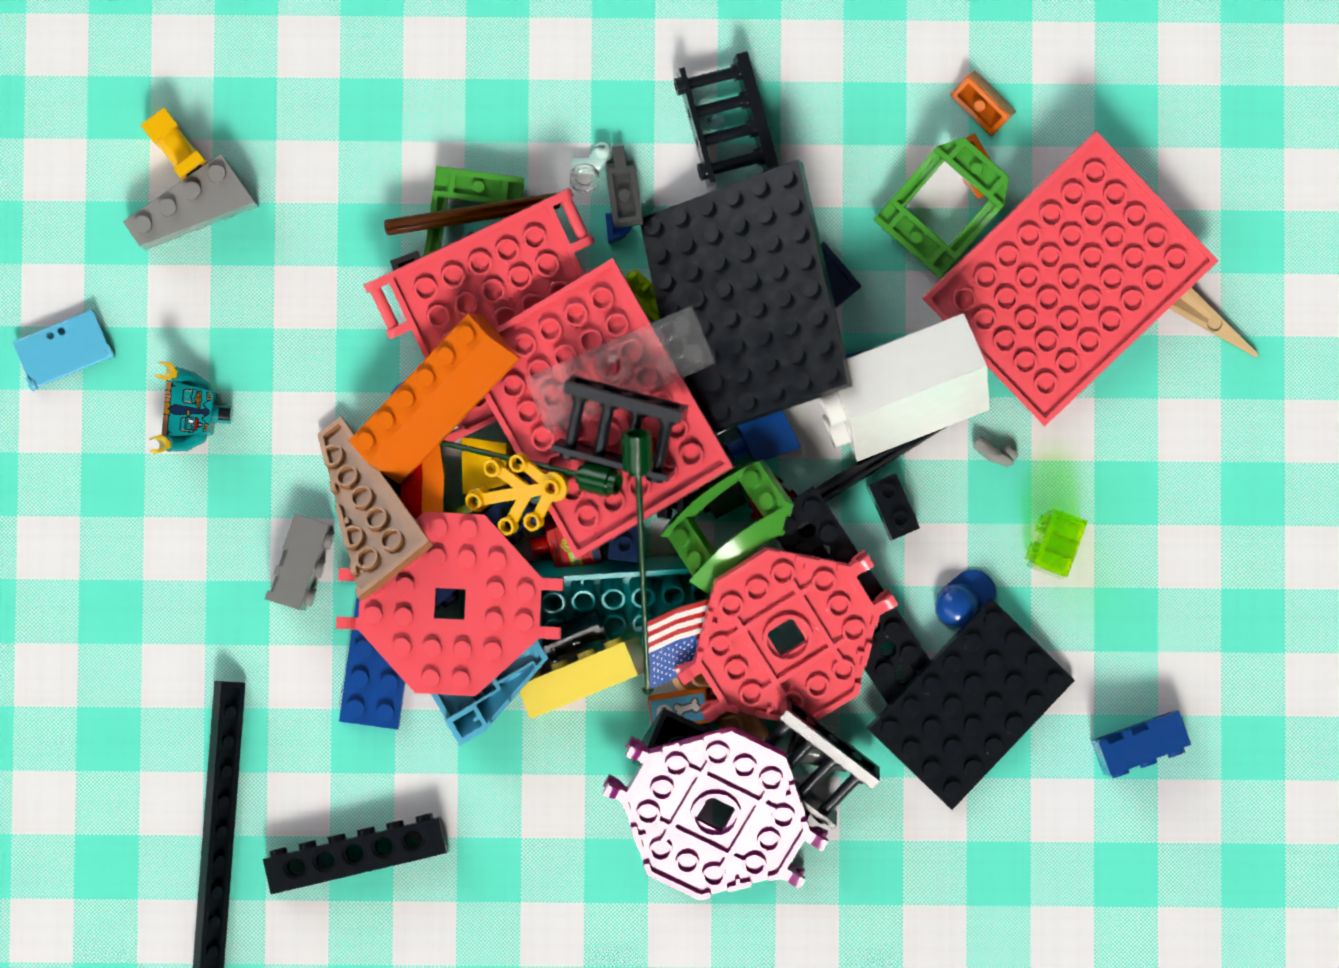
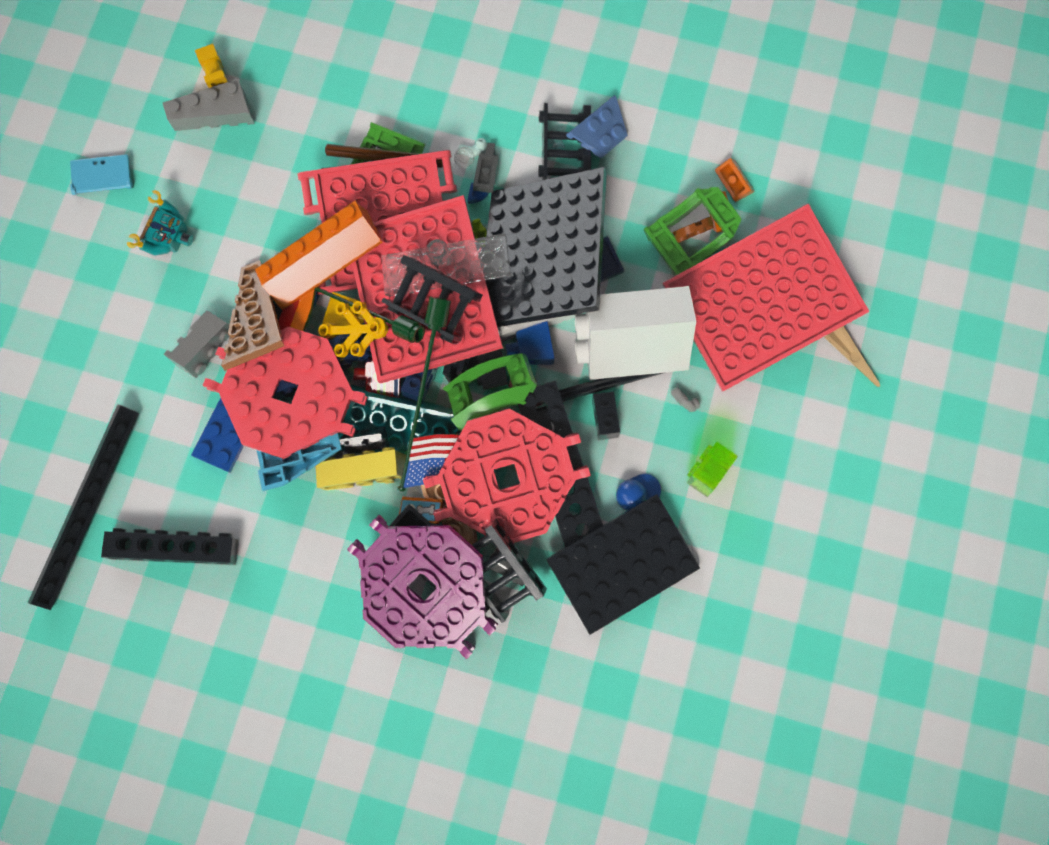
camera: 20 degrees right, 10 degrees down
(772, 83) = (601, 129): none -> medium blue wing
(946, 203) = (693, 229): none -> dark orange plate
(1141, 744) = (736, 625): blue wedge -> none

